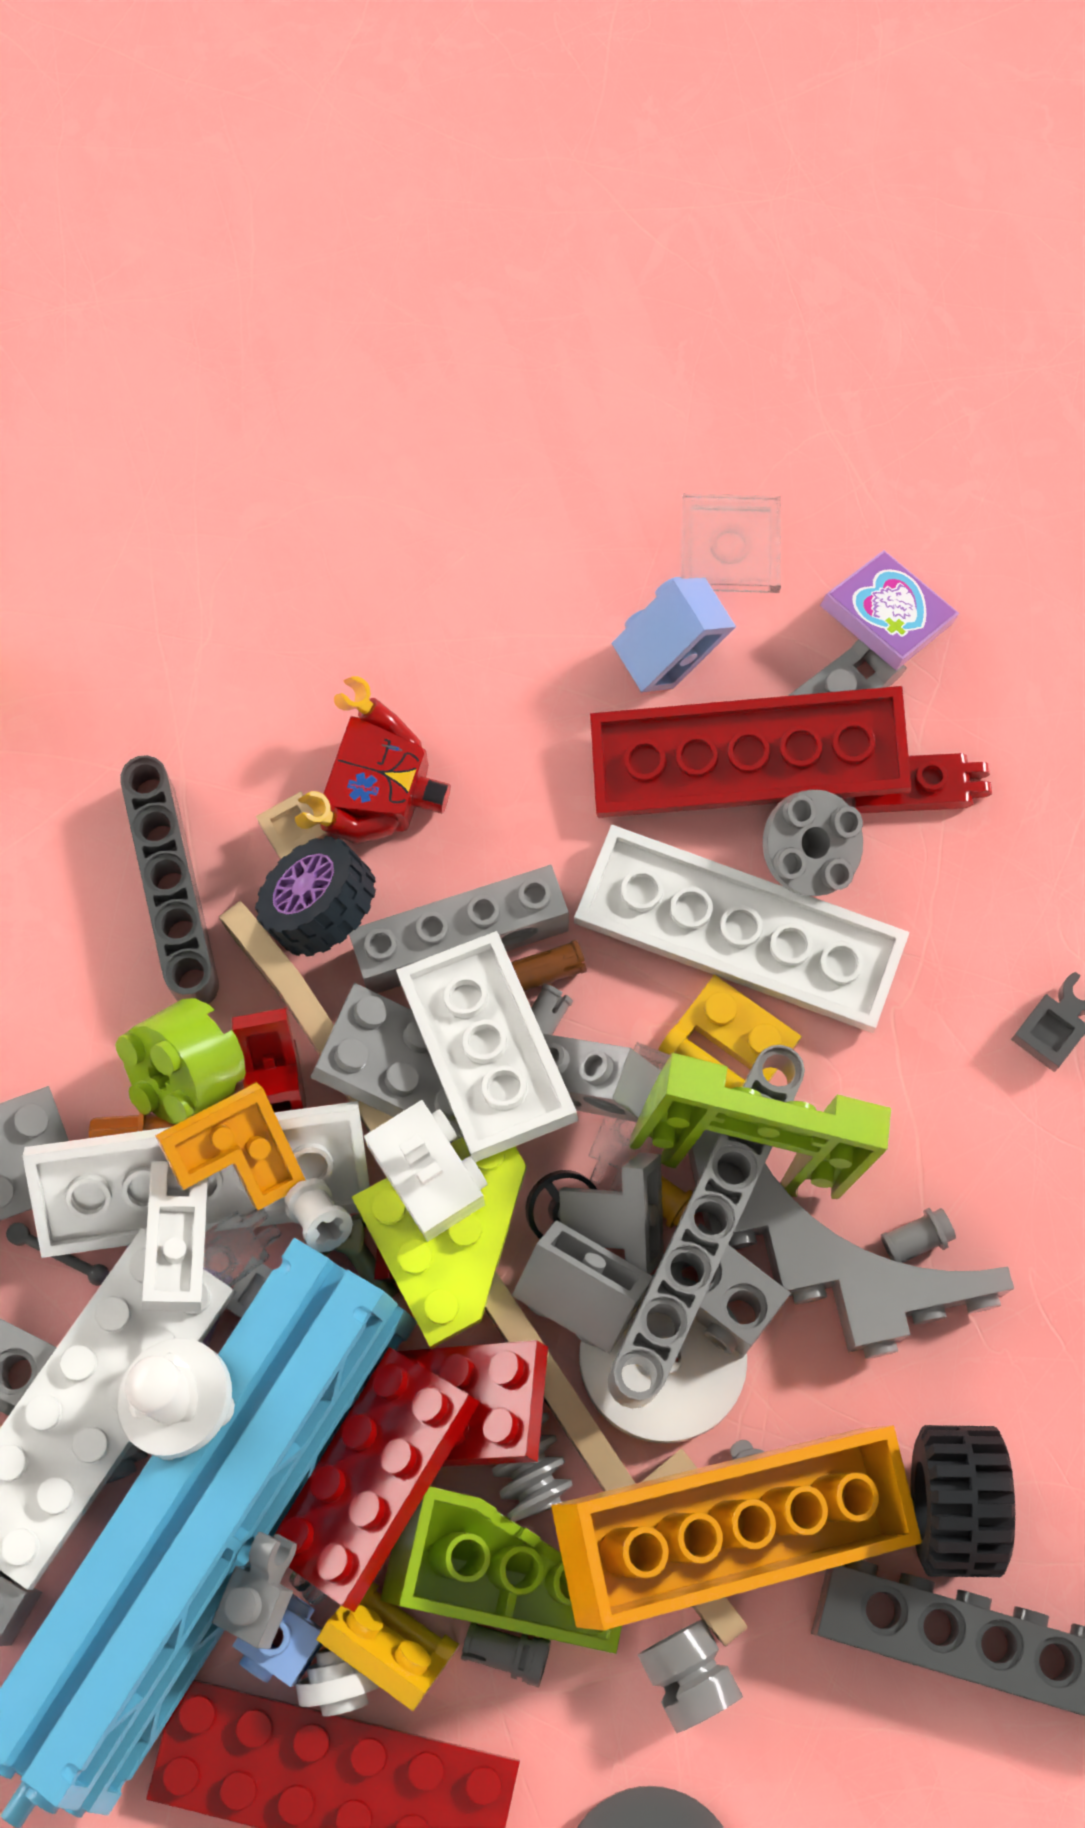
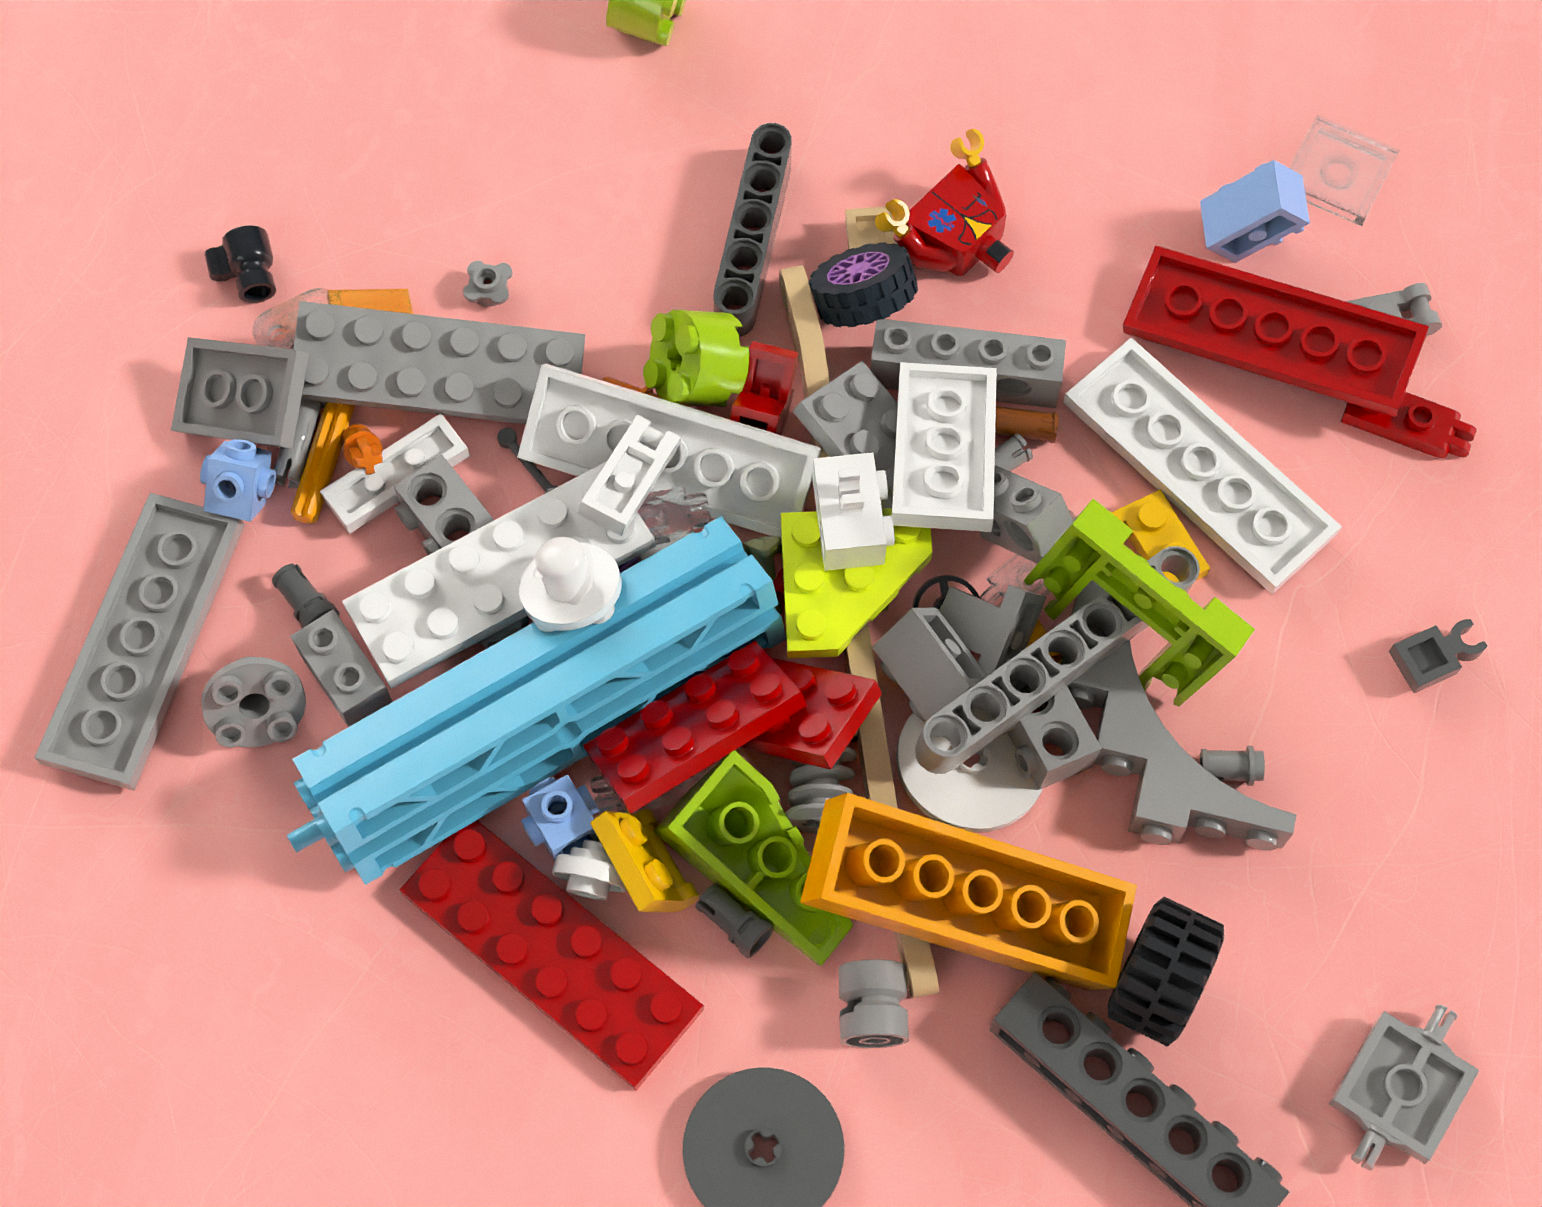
camera: 25 degrees right, 5 degrees down
(238, 1133) = (716, 418): light orange plate -> none
(254, 1597) = (559, 768): light grey plate -> none
(322, 1221) = (747, 513): white bush -> none
(813, 842) = (1293, 418): light grey plate -> none
(889, 609) = (1449, 273): tile -> none

